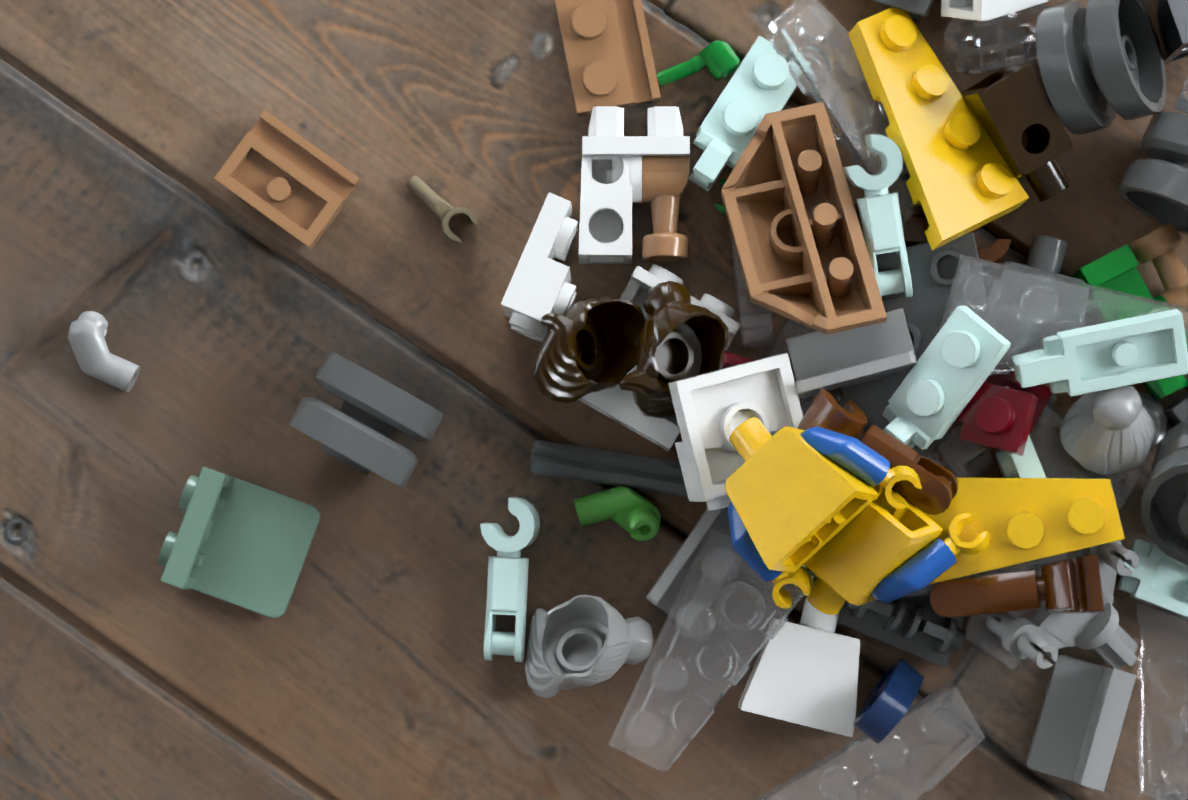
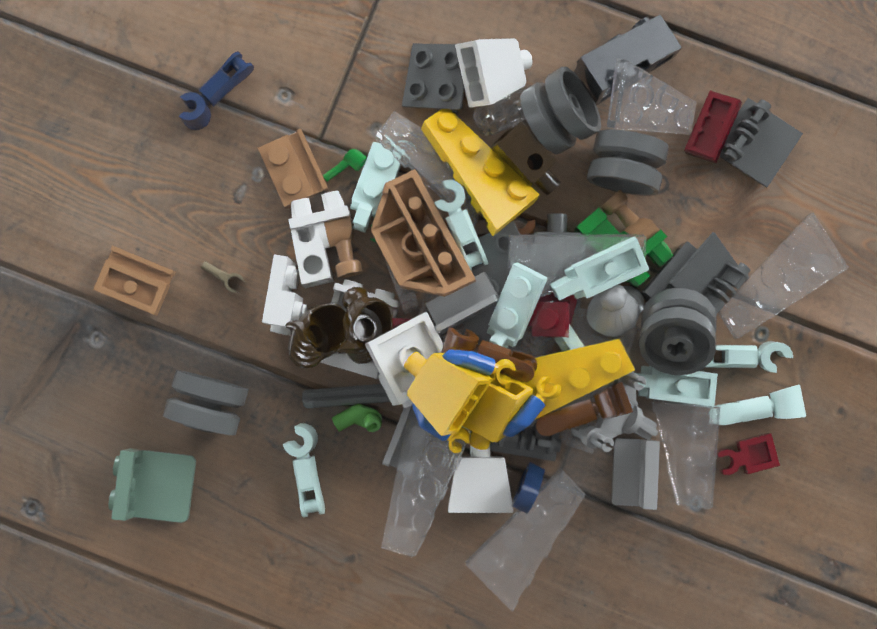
camera: 15 degrees left, 0 degrees up
(93, 355) = (51, 402): light grey arm -> none
(582, 645) = (354, 497): light grey hair -> none

